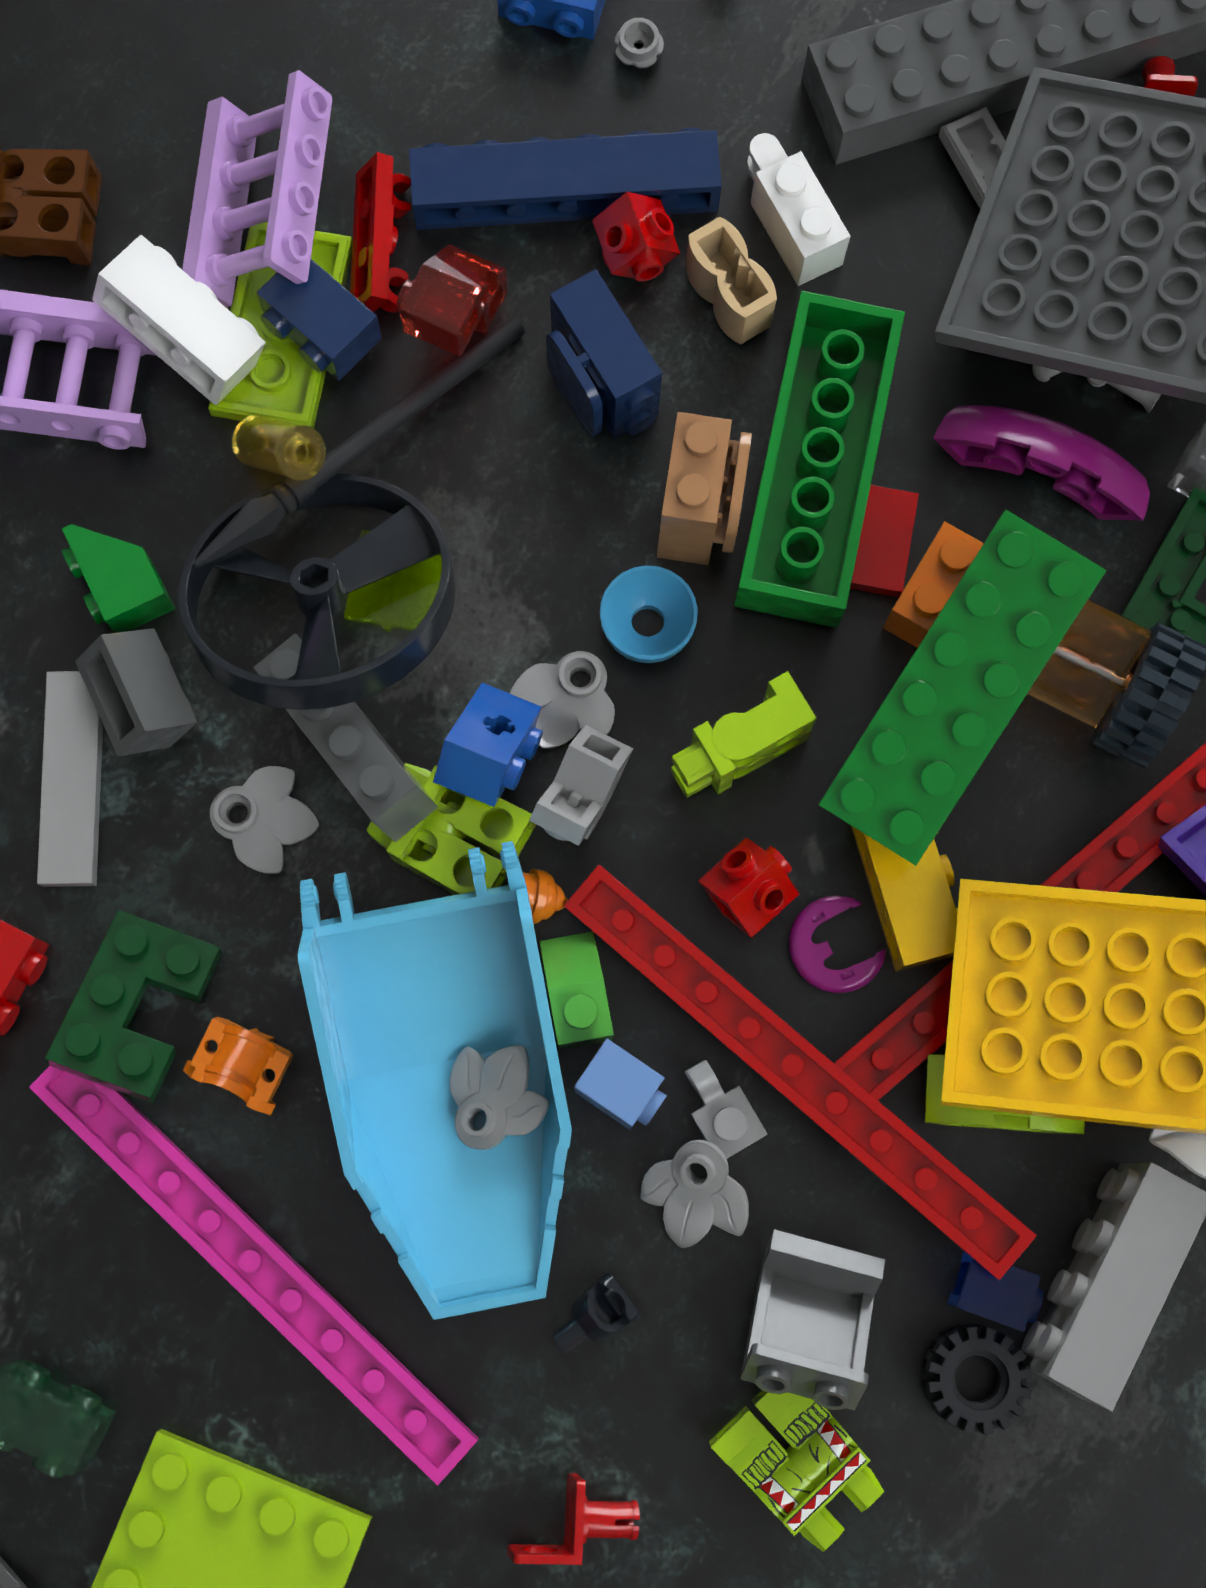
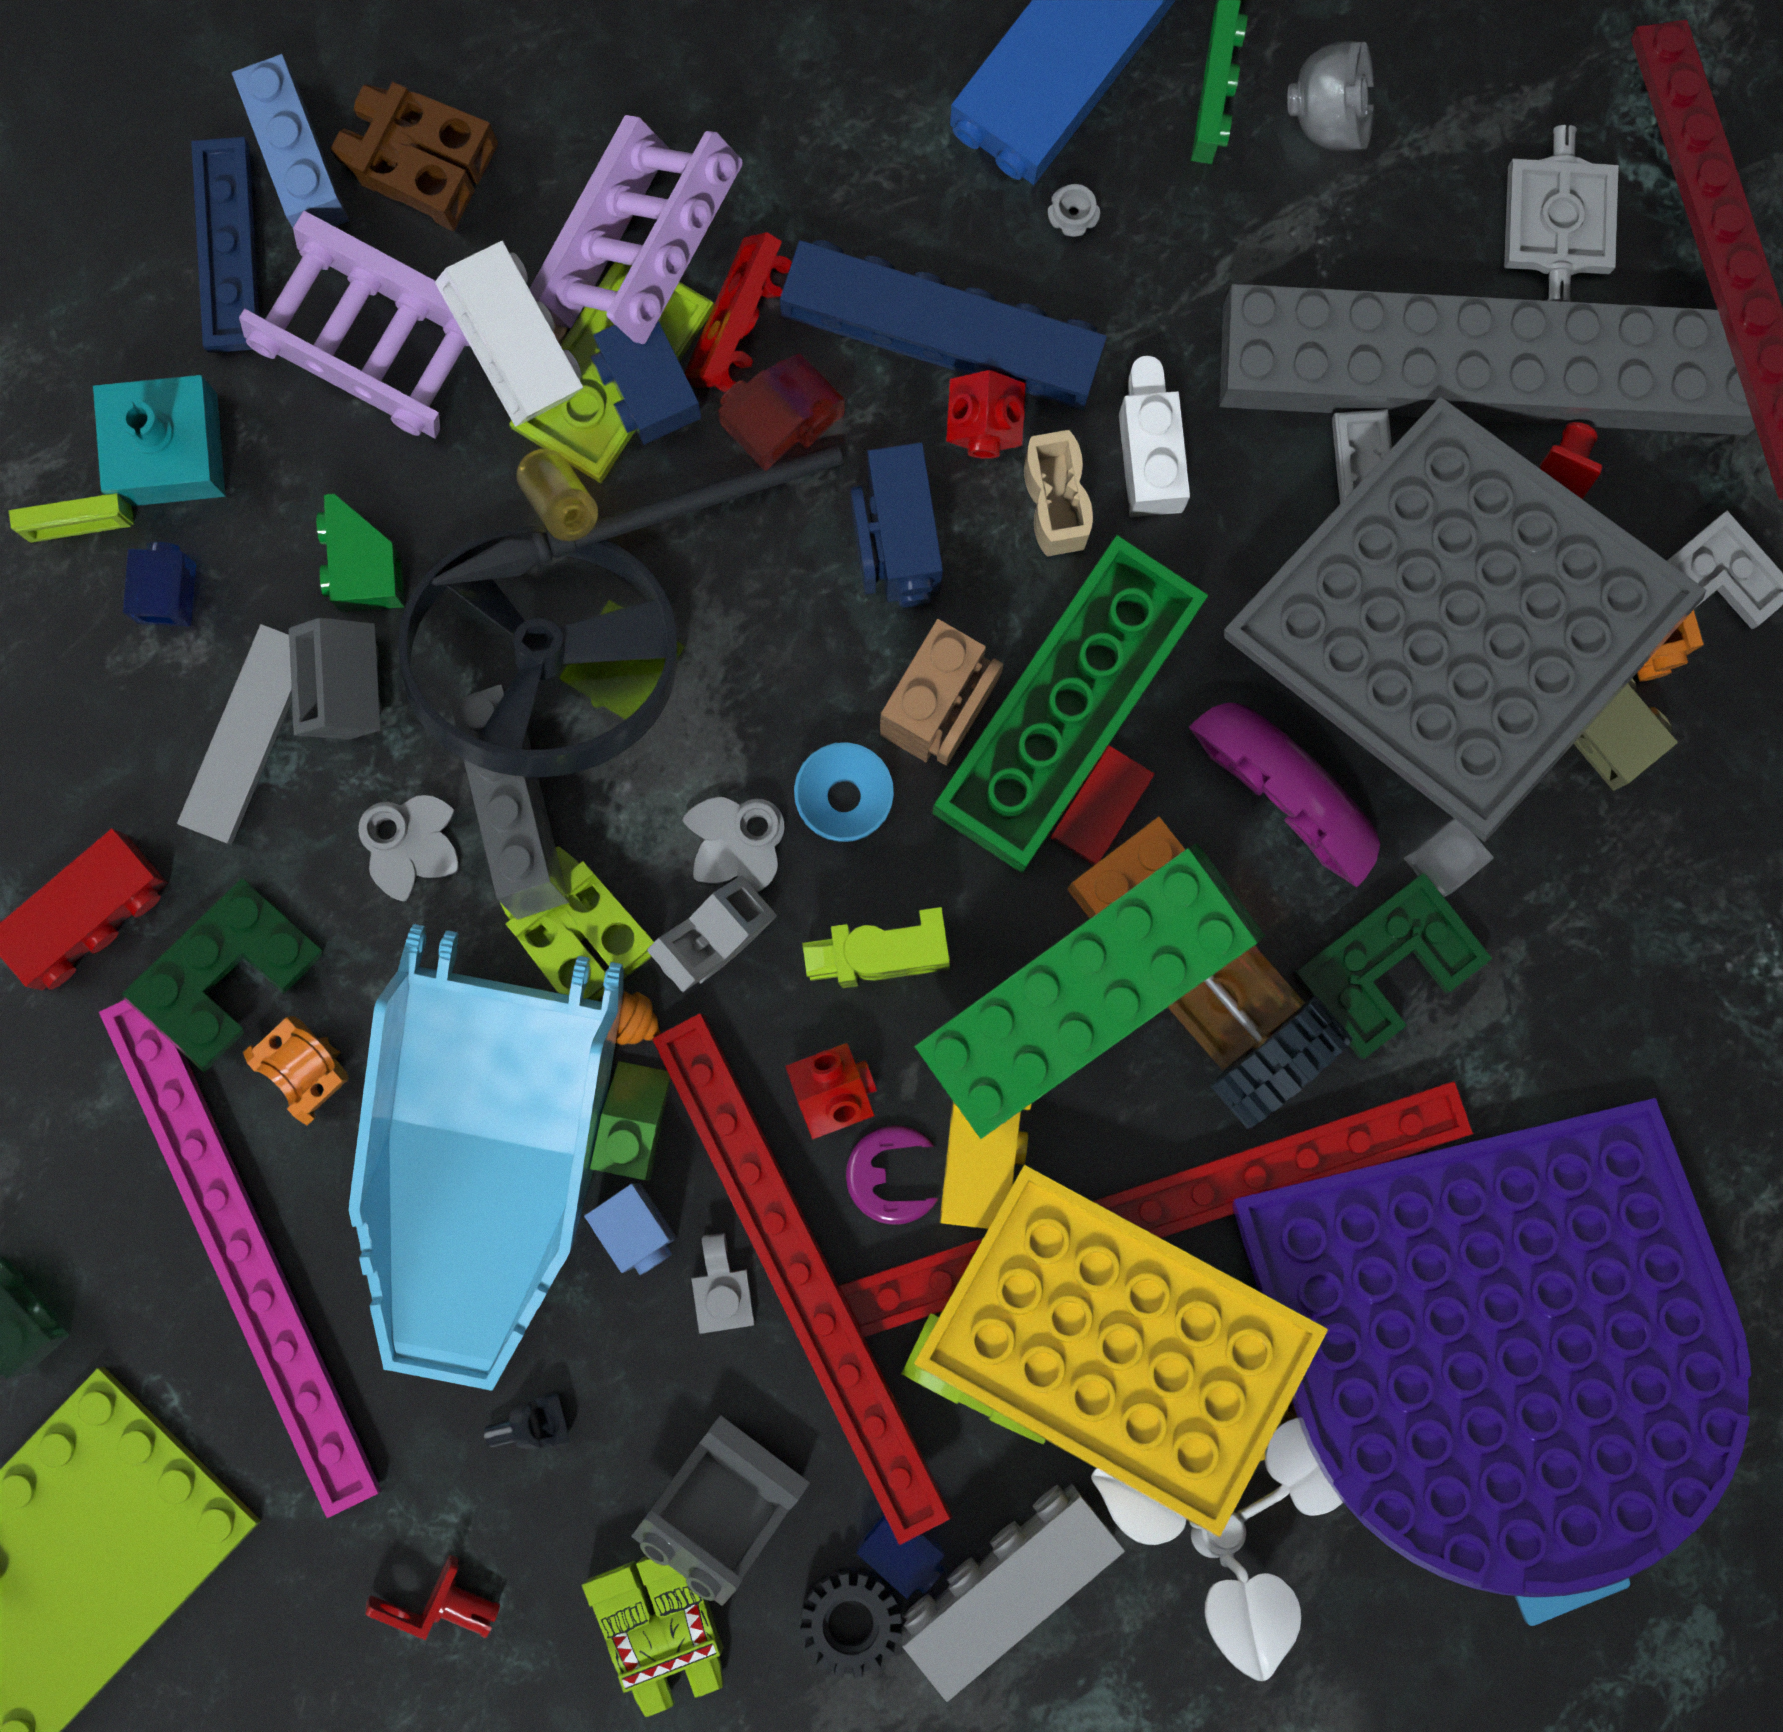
camera: 20 degrees right, 5 degrees up
(489, 745) = (640, 861): blue brick -> none
(500, 1091) = (522, 1187): light grey plate -> none
(696, 1202) = (661, 1358): light grey plate -> none

